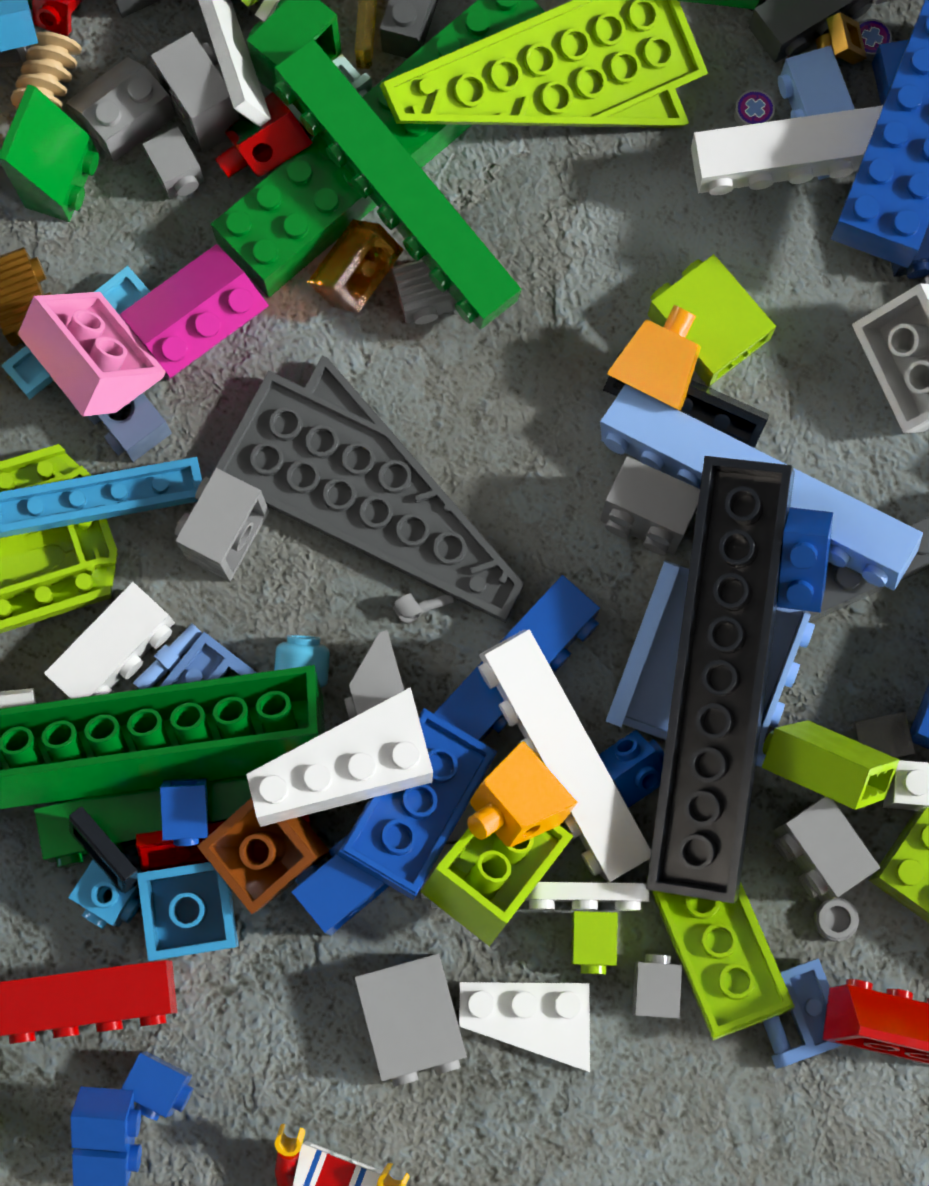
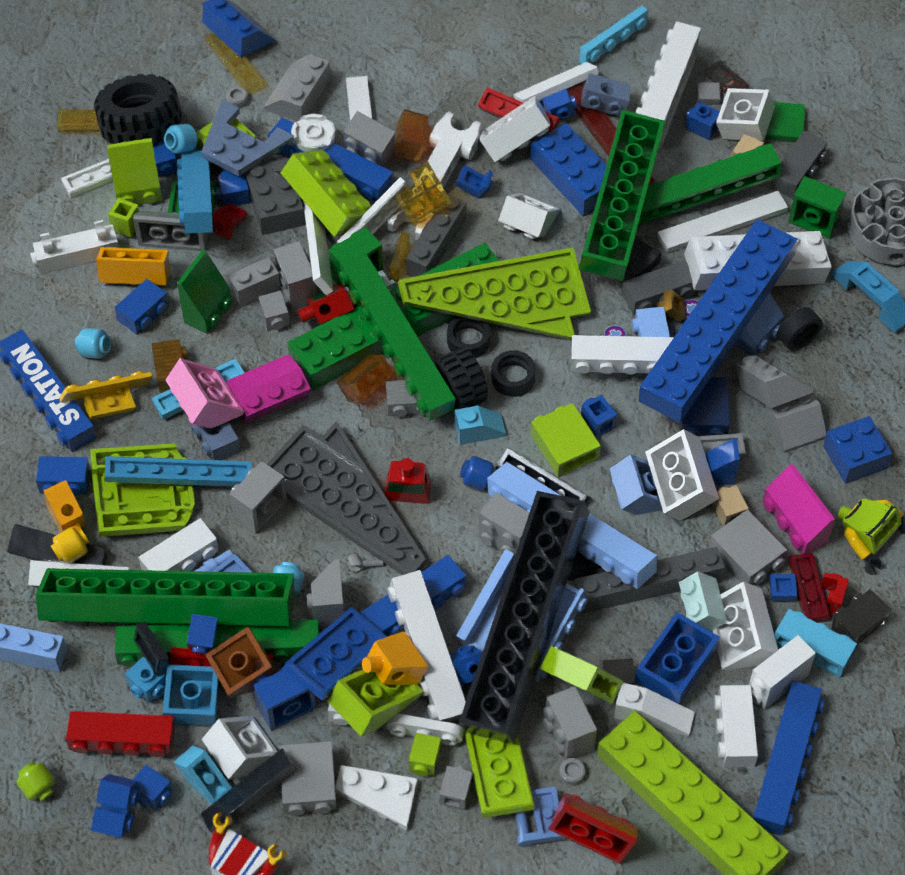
camera: 10 degrees right, 20 degrees down
(47, 67) = (218, 247): tan piece -> none
(237, 1045) = (202, 774): none -> medium azure slope
(287, 981) = (238, 745): none -> white slope
(319, 1065) = (250, 789): none -> black slope
(348, 764) = (298, 617): white wedge -> none
(465, 449) = (408, 482): none -> red torso
(511, 181) = (459, 323): none -> black tyre
(523, 241) = (463, 377): none -> black tyre
(561, 318) = (478, 424): none -> medium azure slope
(577, 408) = (475, 472): none -> blue head
(607, 182) = (518, 358): none -> black tyre
(660, 359) = (528, 450): light orange torso -> none
(760, 251) = (599, 415): none -> blue brick
(804, 559) = (585, 558): blue brick -> none
(844, 387) = (635, 486): none -> medium blue slope

